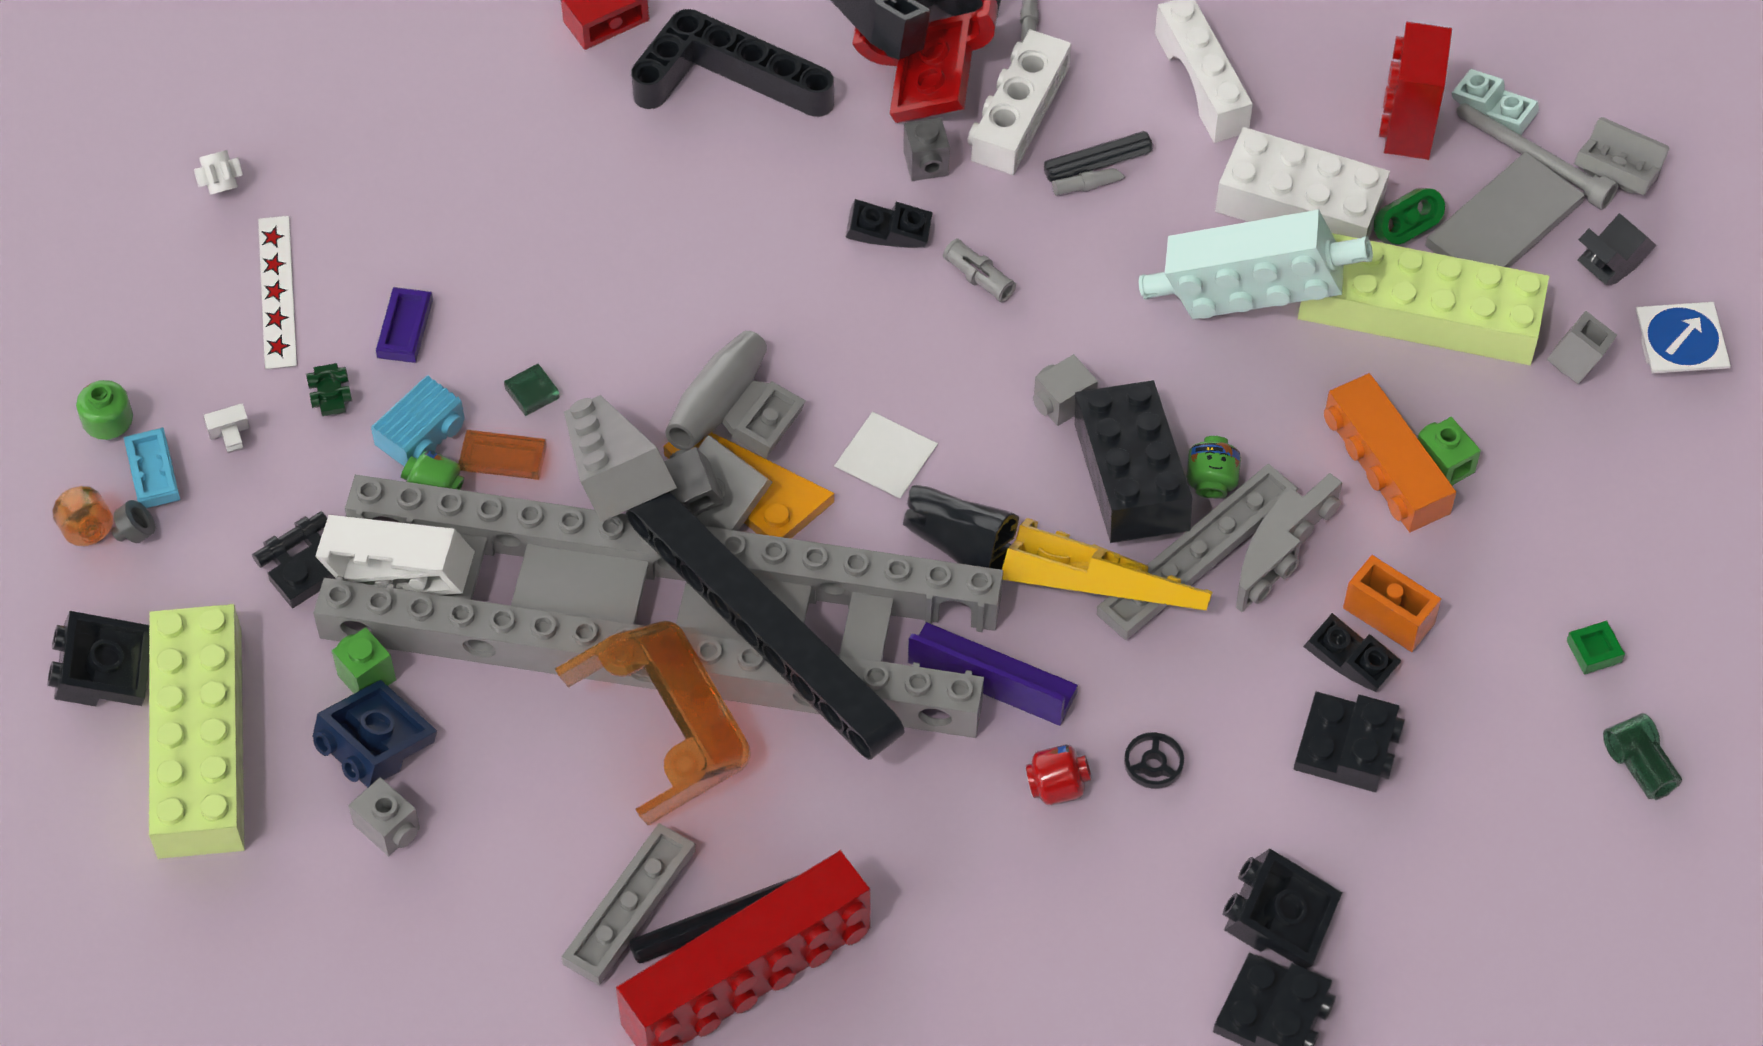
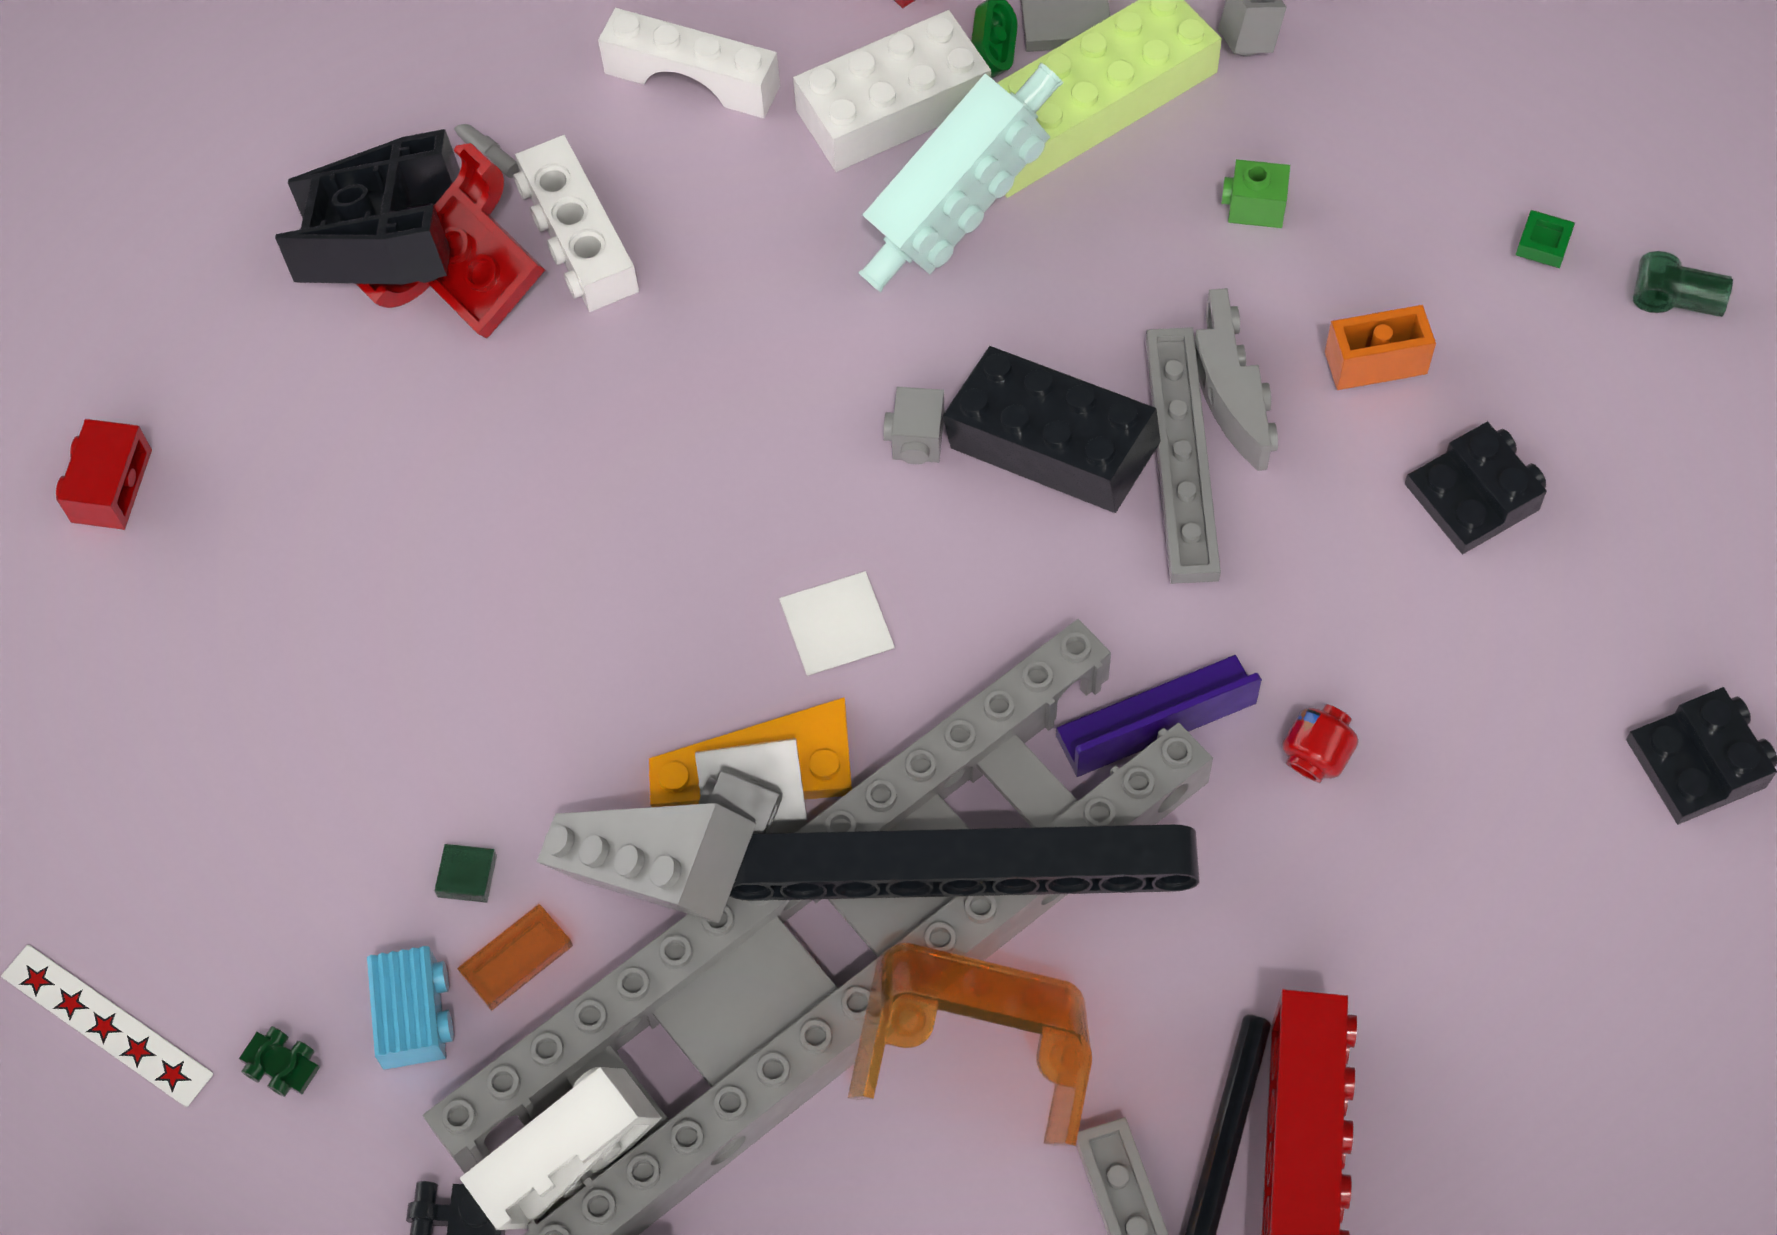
camera: 45 degrees left, 5 degrees up
(227, 424) = (227, 1197): white tile -> none
(404, 325) = (272, 933): dark purple tile -> none
(433, 470) = (482, 1039): bright green head -> none
(727, 394) = (659, 705): light grey plate -> none
(734, 54) = (283, 416): black beam -> none
(897, 227) = (600, 425): black slope -> none
(926, 149) = (550, 333): flat silver brick -> none
(961, 528) = (995, 620): black piece -> none
(996, 283) = (688, 395): light grey pin -> none
(1069, 564) = (1125, 553): yellow wedge -> none
(1086, 181) = (707, 241): light grey piece -> none
(1098, 156) = (692, 212): black axle -> none
(1154, 753) = (1366, 647): black piece -> none
(1213, 467) = (1112, 368): bright green head -> none
(1281, 908) = (1610, 671): black plate -> none
(1350, 655) = (1397, 419): black slope -> none
(1389, 453) = (1218, 233): orange brick -> none

